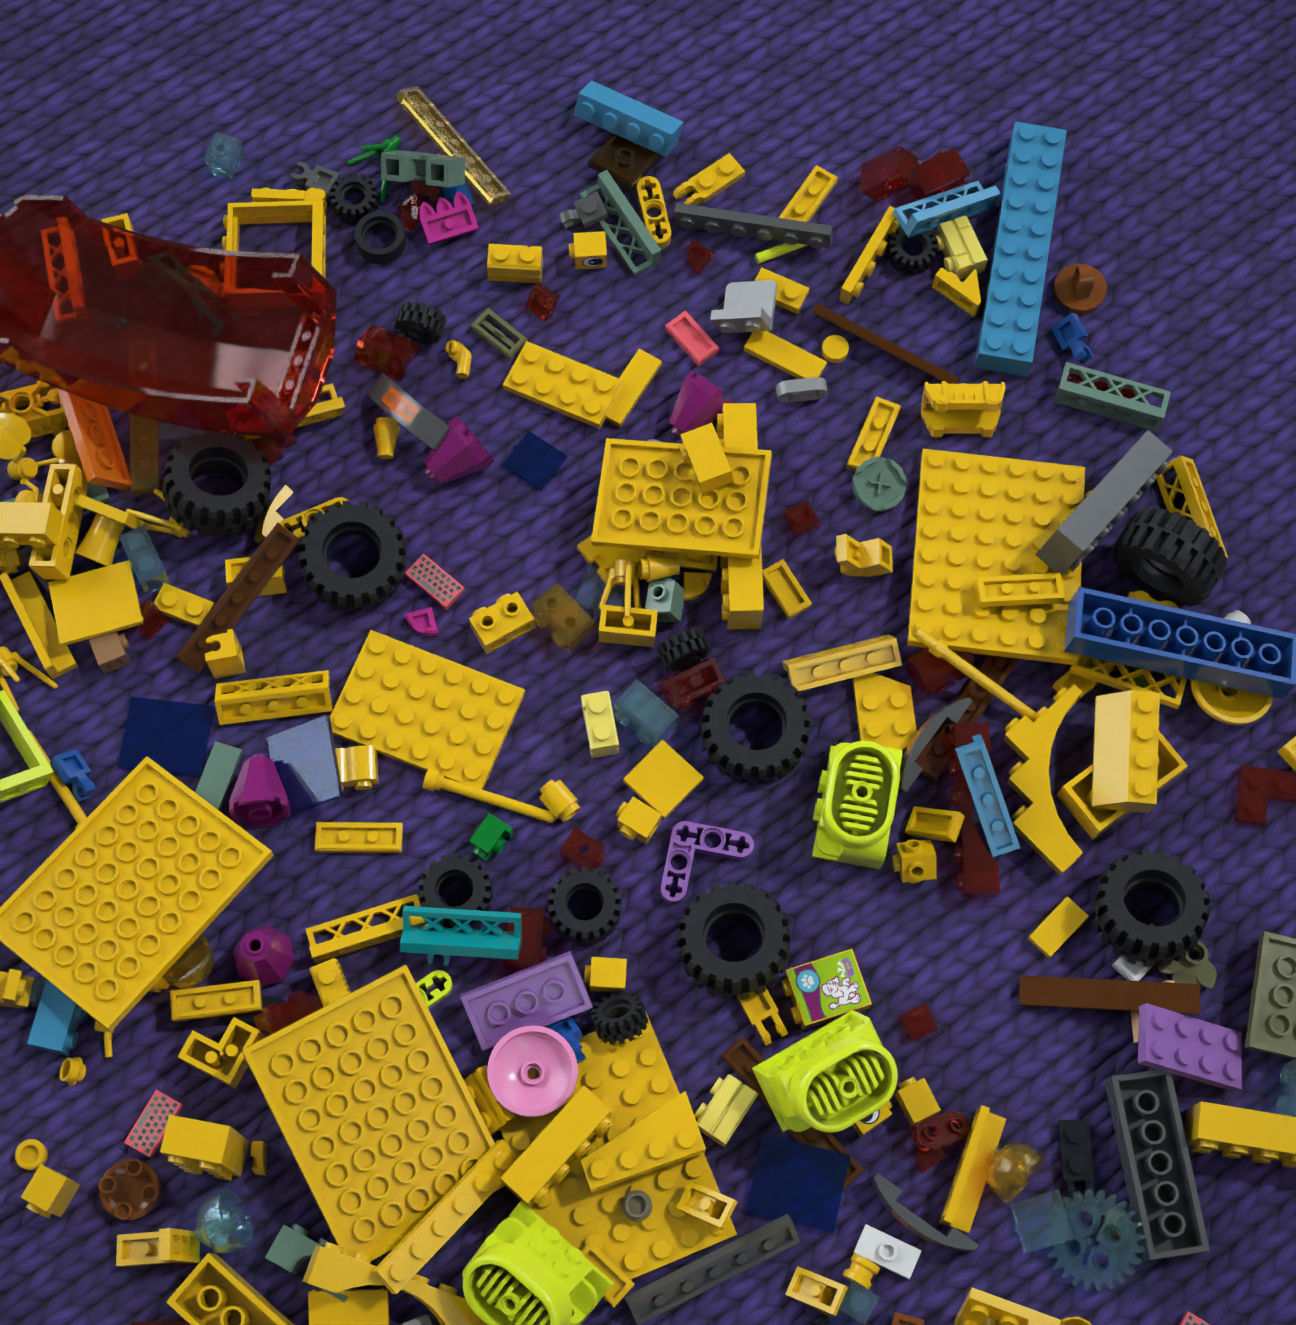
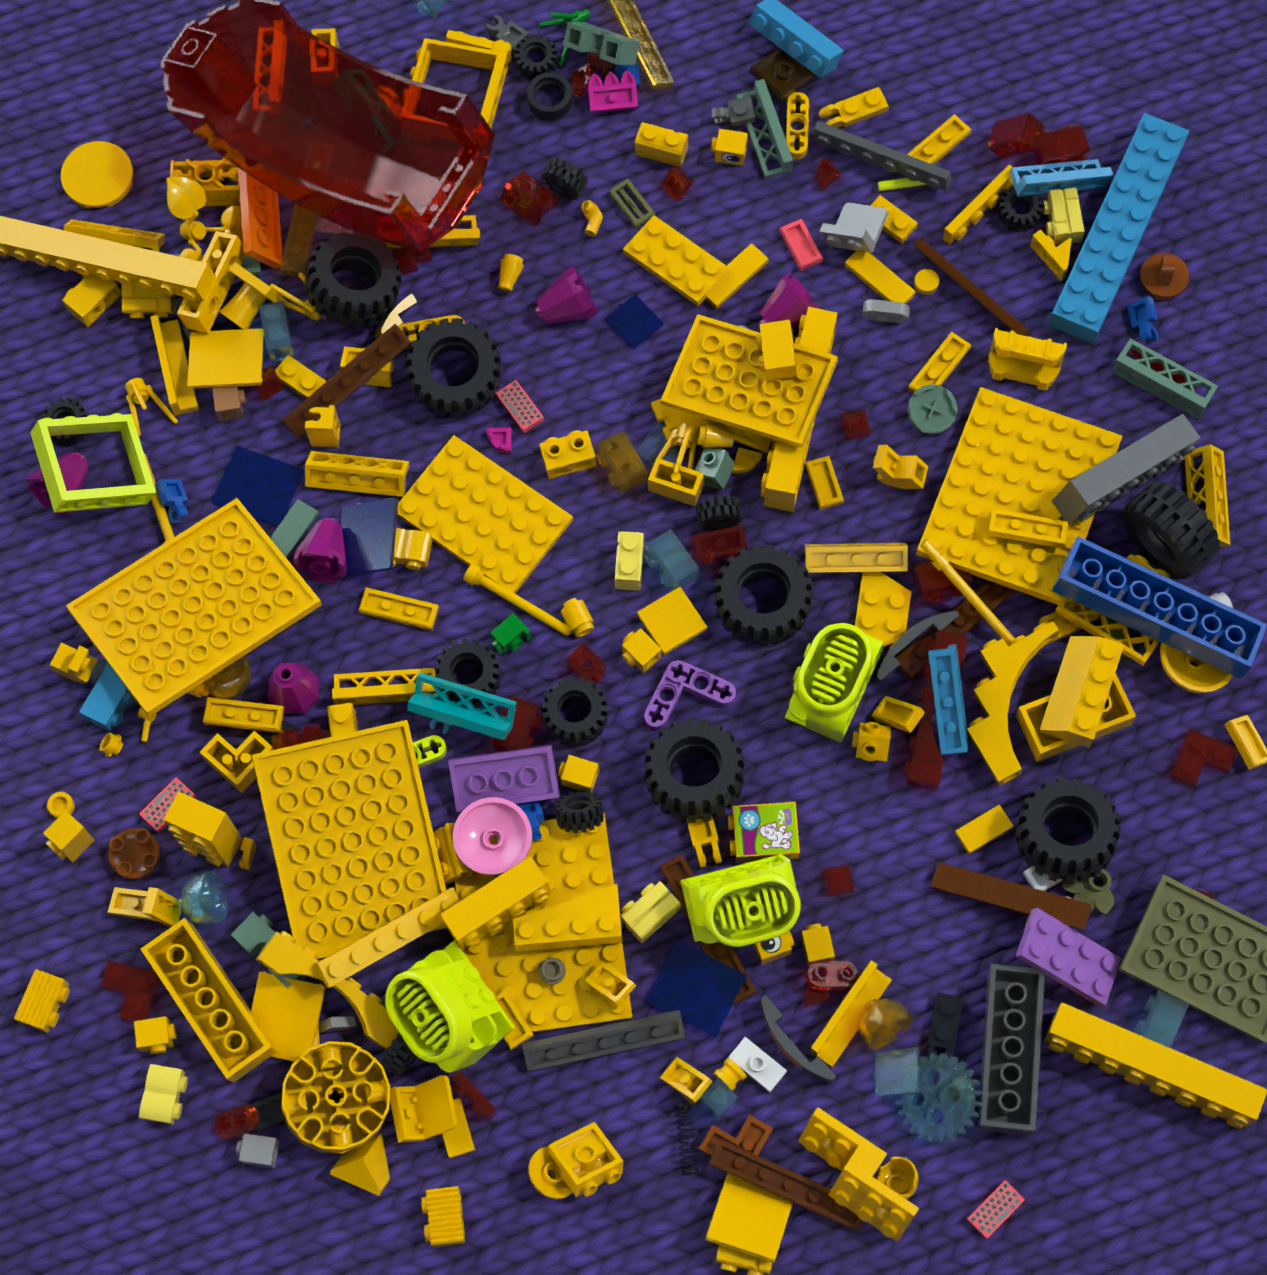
camera: 20 degrees right, 0 degrees up
(408, 411) = (533, 253): dark grey slope -> none

